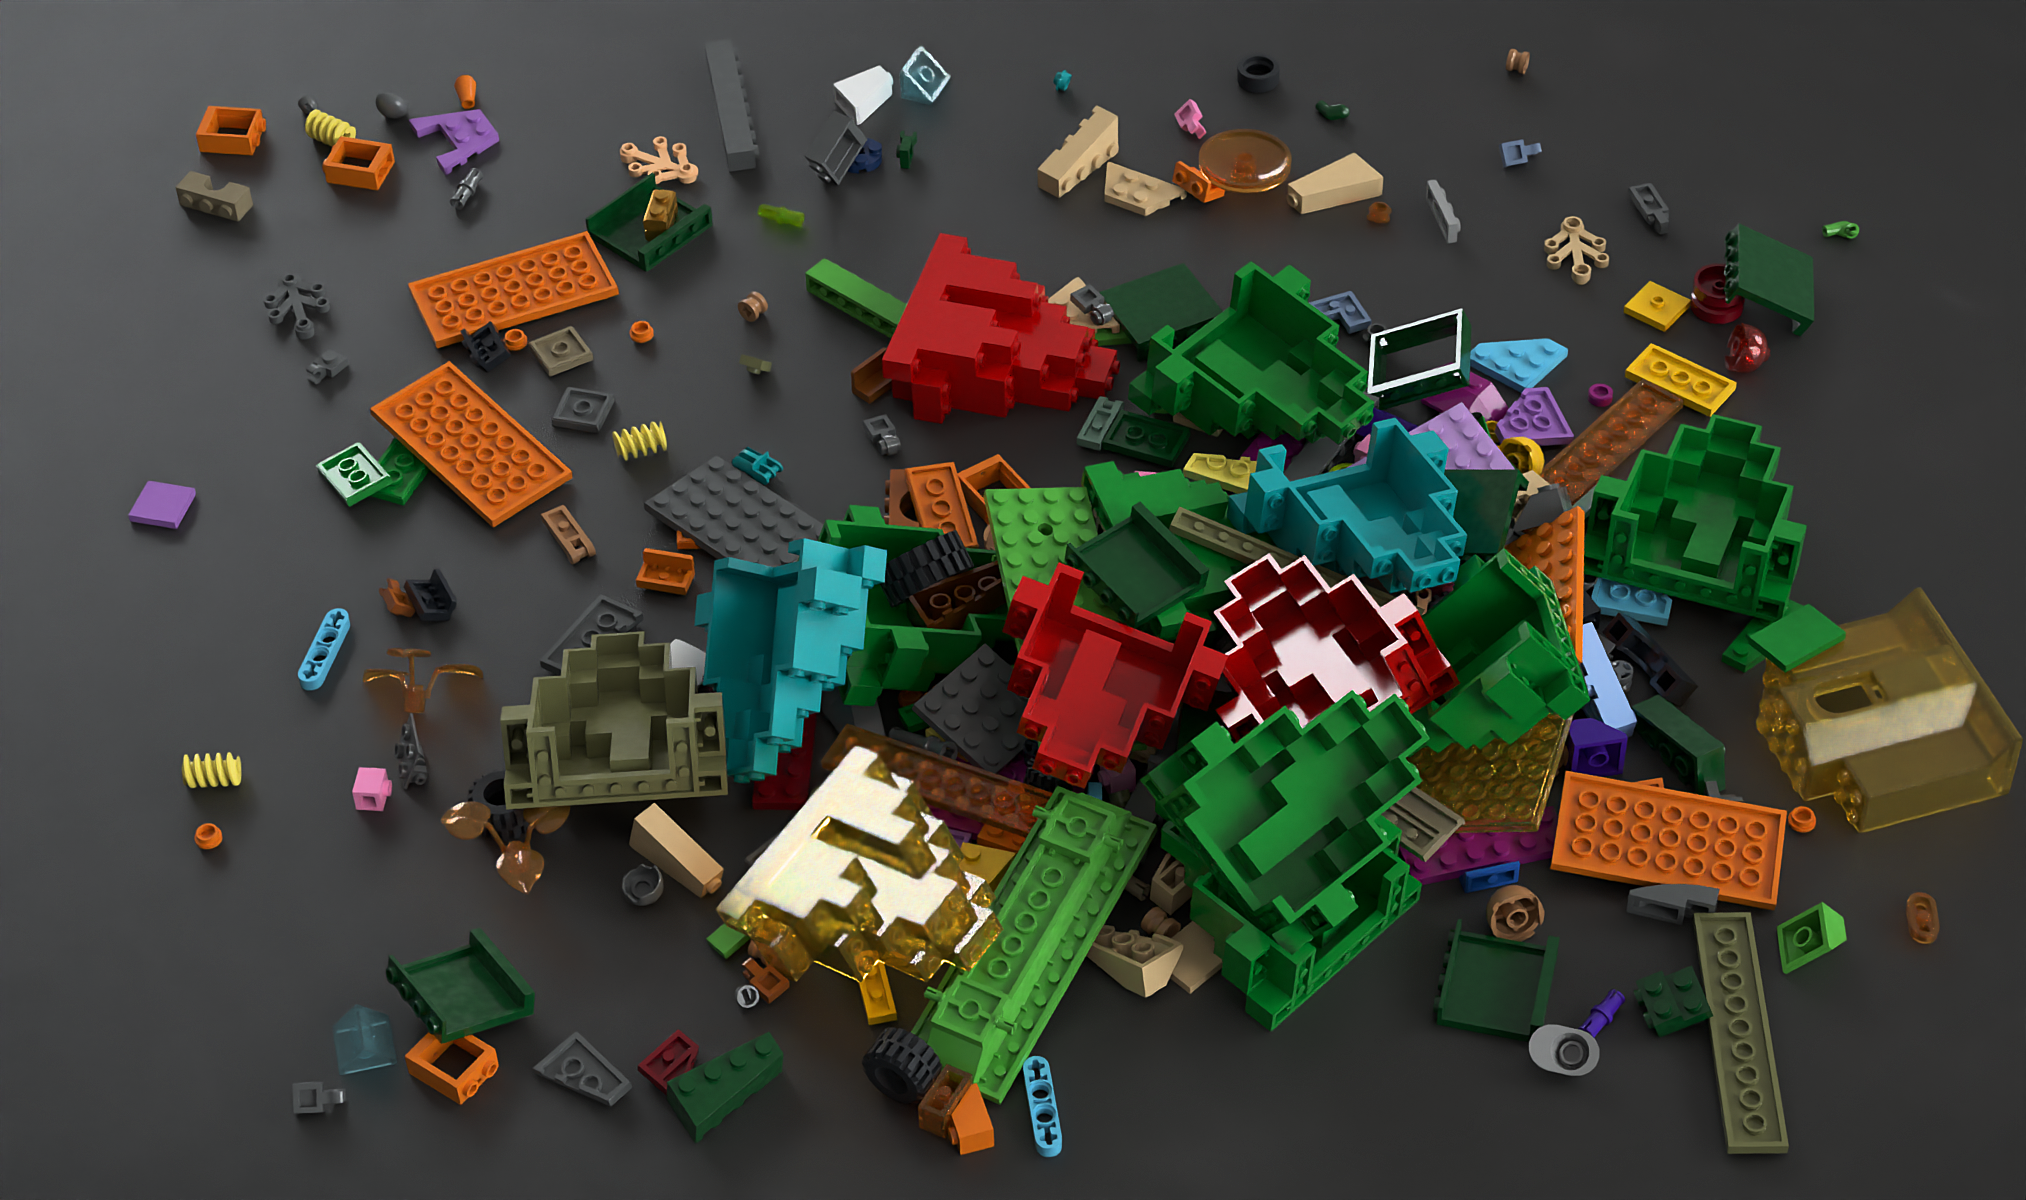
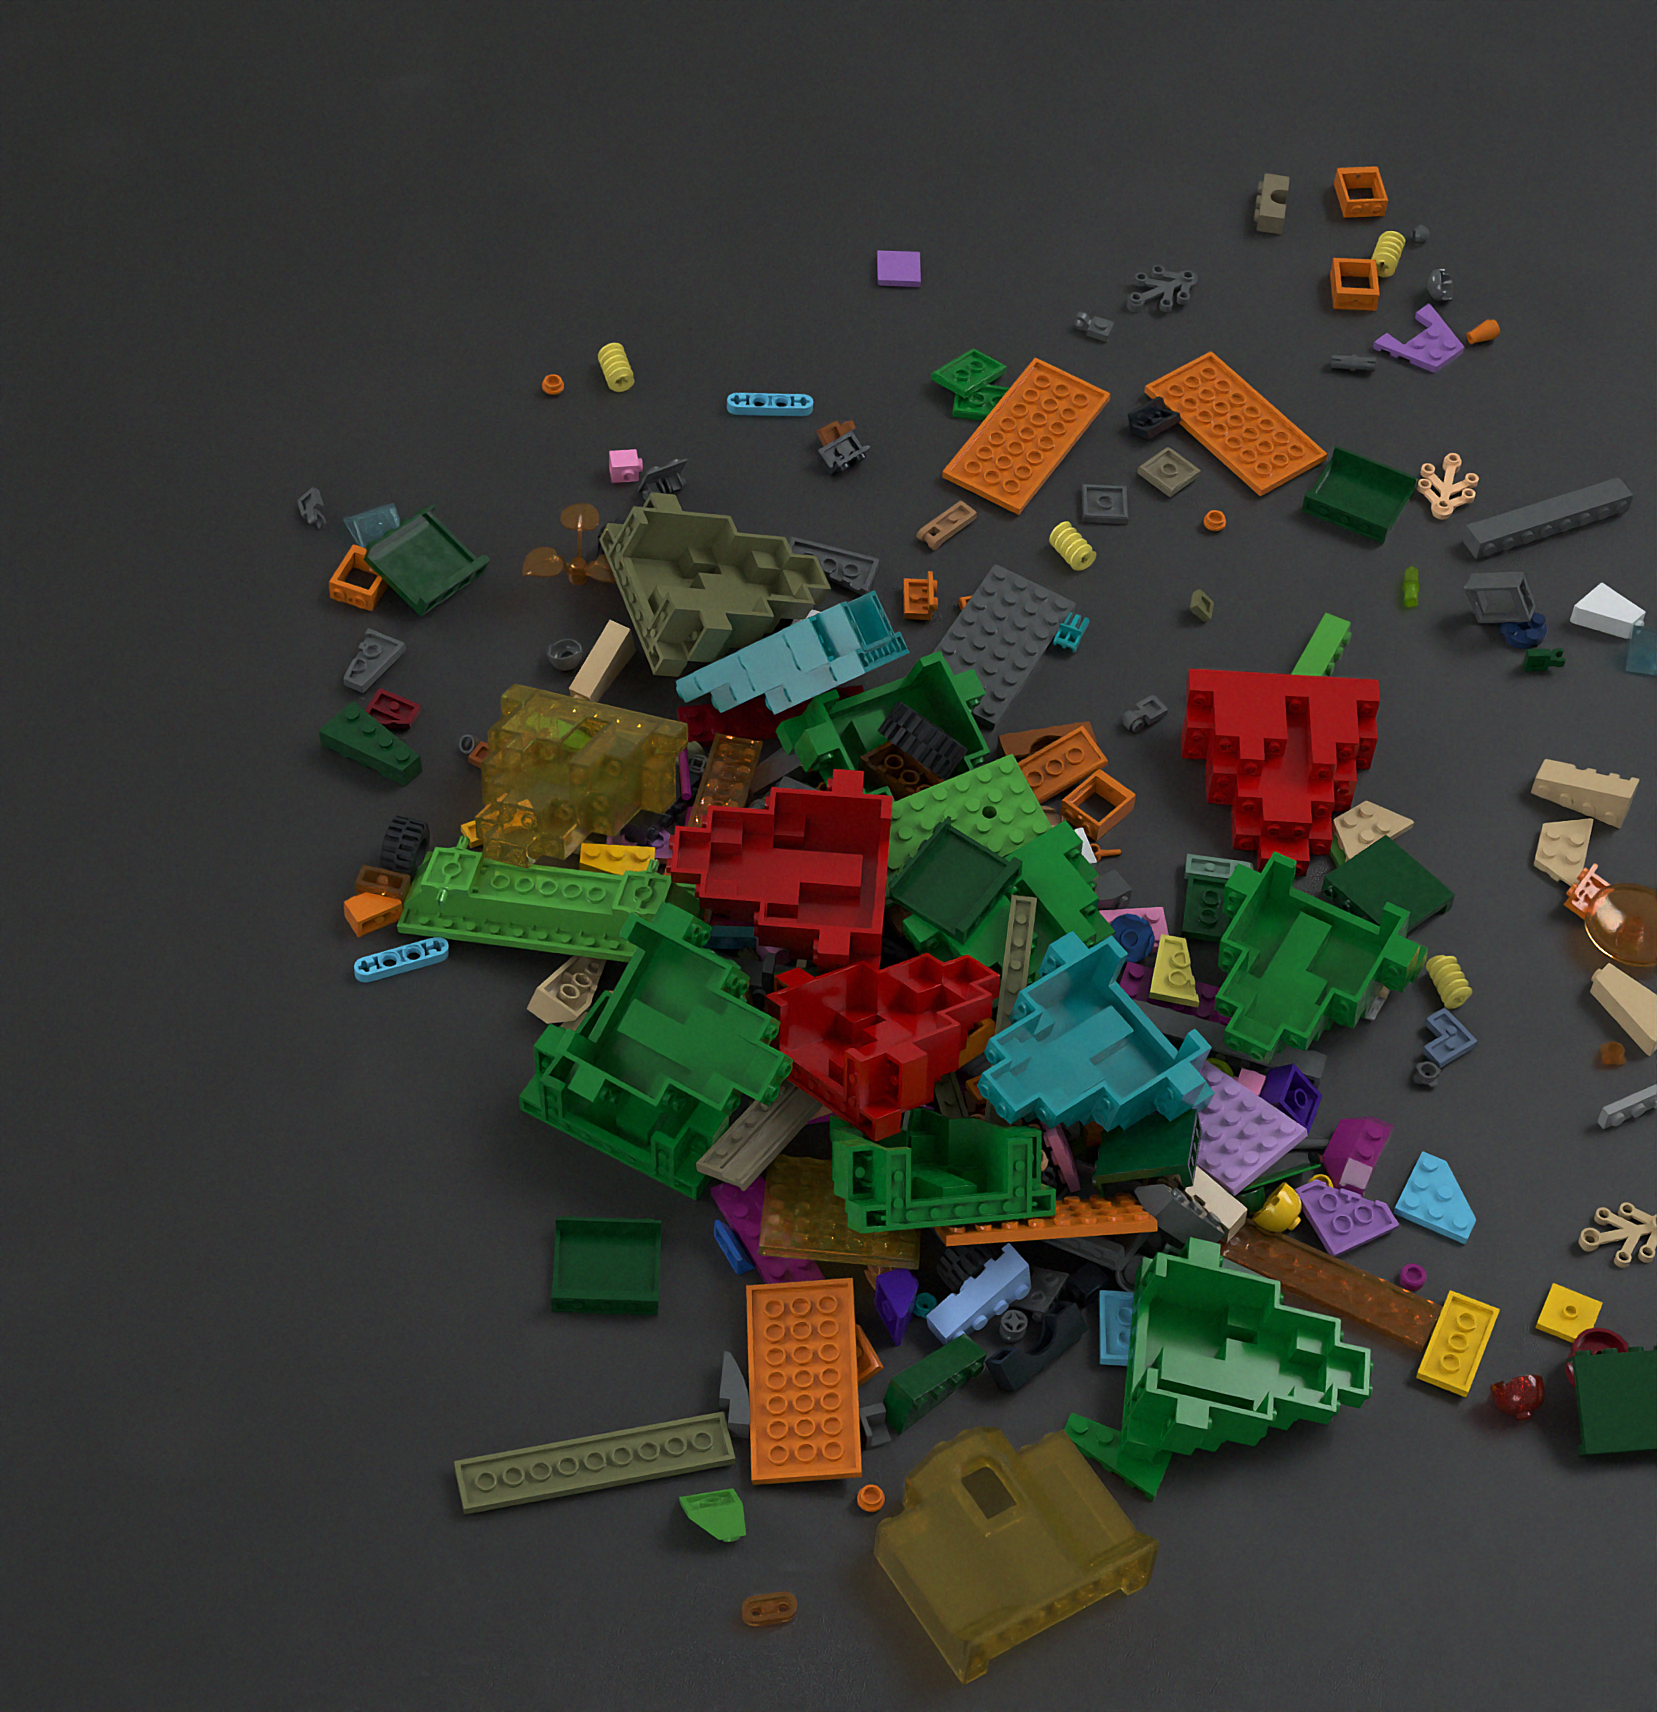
camera: 70 degrees right, 5 degrees up
(413, 694) = (728, 466): clear orange plant -> none
(515, 339) = (1172, 438): orange plate -> none
(660, 213) = (1366, 496): pearl gold brick -> none
(752, 306) = (1275, 589): medium nougat wheel -> none
(1088, 300) = (1364, 825): dark grey plate -> none
(1425, 383) = (1358, 1128): dark green window -> none
(1514, 913) = (684, 1264): medium nougat cylinder -> none
(1564, 1050) = (531, 1320): light grey piece -> none
(1602, 1014) = (587, 1351): dark purple pin -> none
(1672, 1000) = (612, 1402): dark green plate -> none
(1797, 638) = (1070, 1448): green tile -> none

